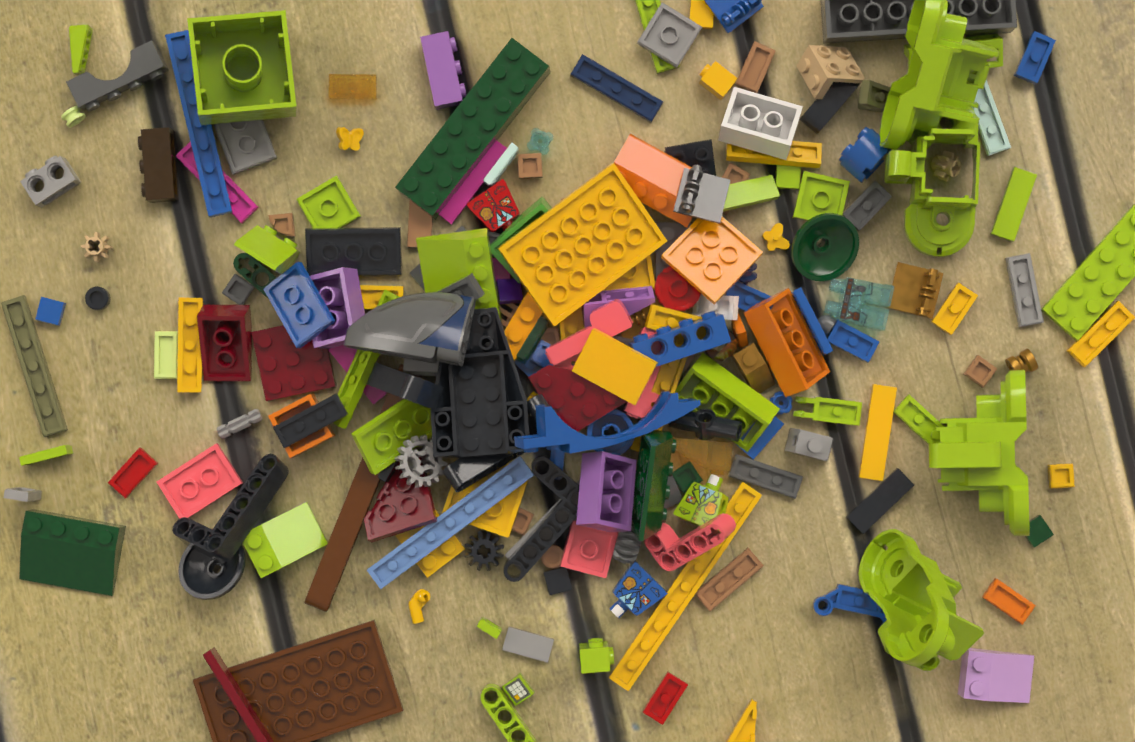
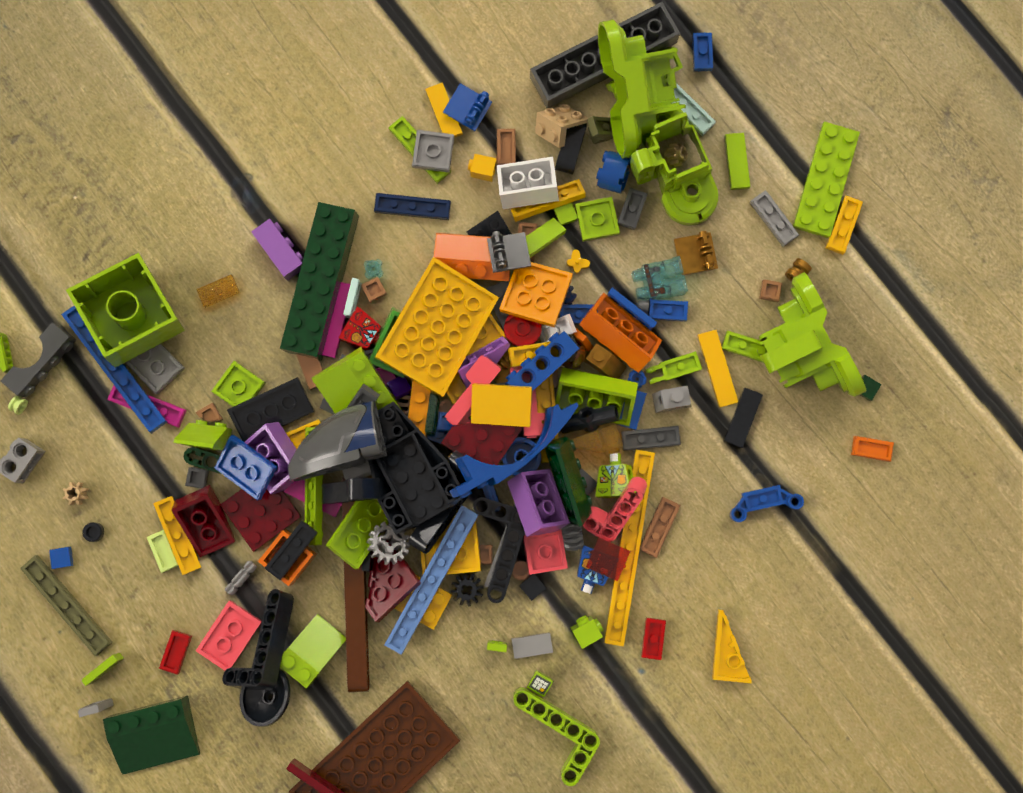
camera: 20 degrees left, 5 degrees down
(158, 165) = (97, 412): dark brown brick -> none
(349, 139) = (232, 329): yellow piece -> none
(416, 604) = (434, 653): yellow arm -> none
(655, 589) = (608, 559): none -> clear red piece
(685, 476) = (592, 464): dark green tile -> none
(832, 254) = (624, 254): dark green dish -> none
(915, 603) = (807, 478): lime piece -> none
(954, 308) = (730, 254): yellow plate -> none
(995, 676) = (889, 508): lavender slope -> none
(1061, 475) = (865, 339): yellow tile -> none

